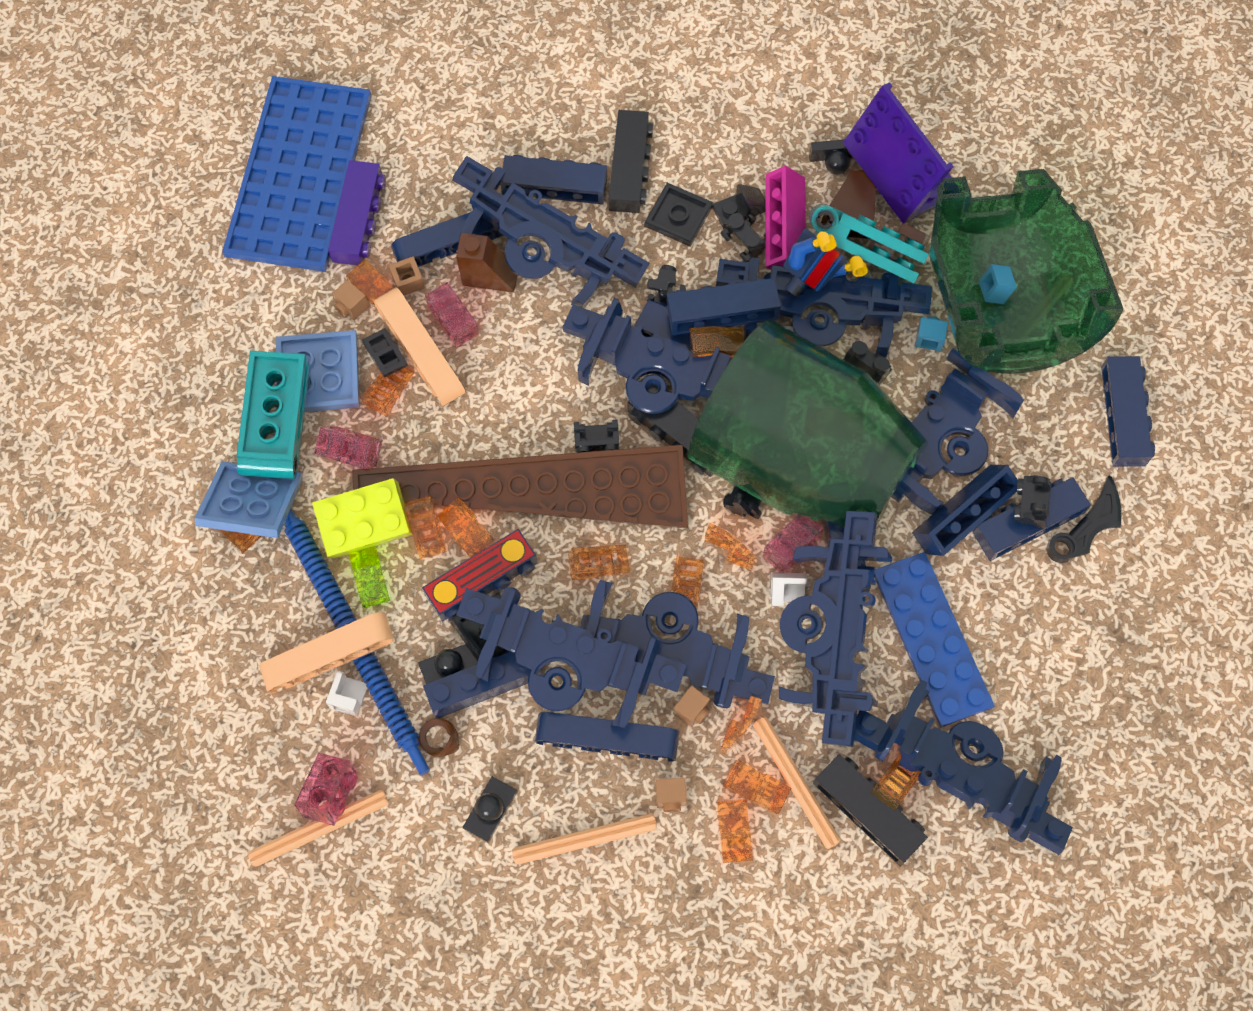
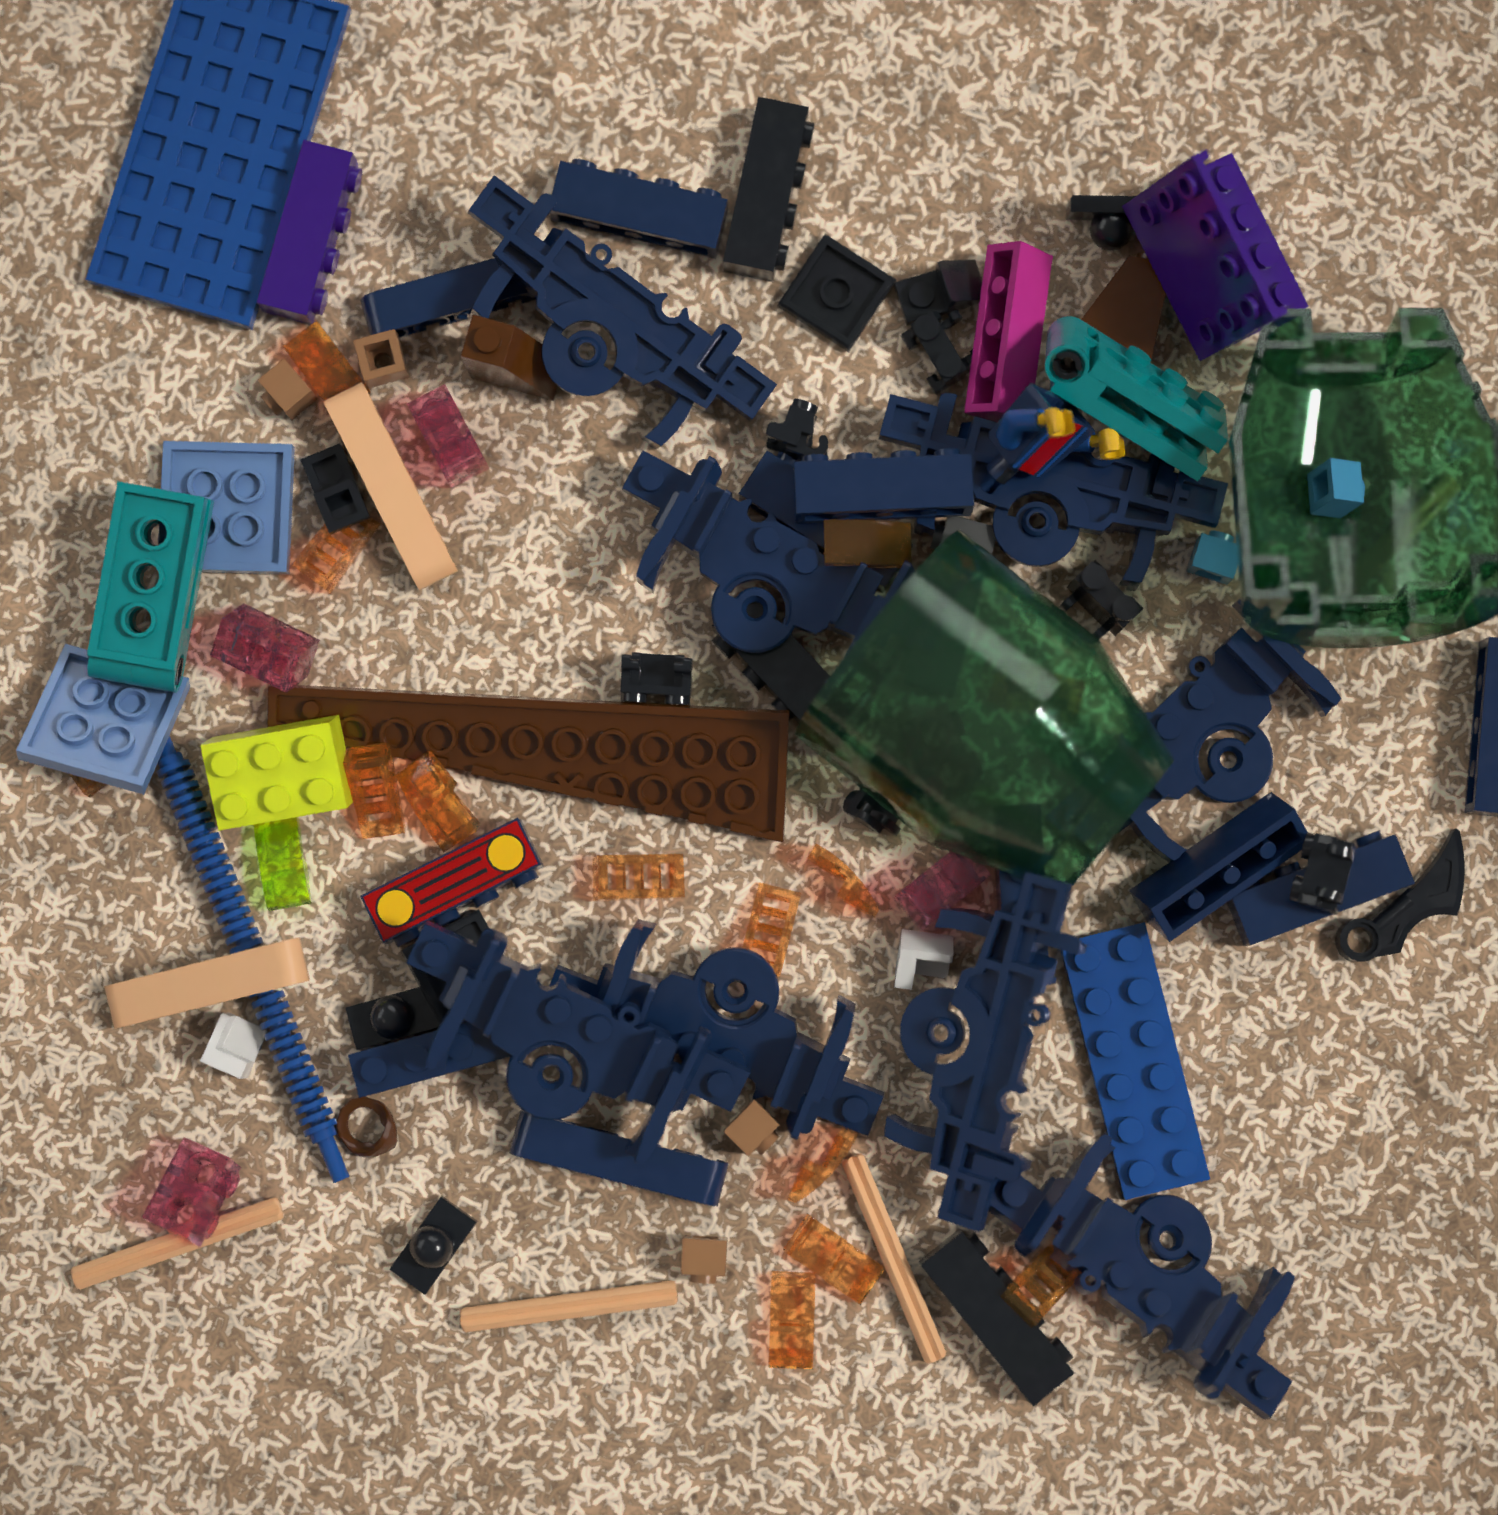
camera: 10 degrees right, 15 degrees up
(914, 234) = (1215, 384): reddish brown tile -> none

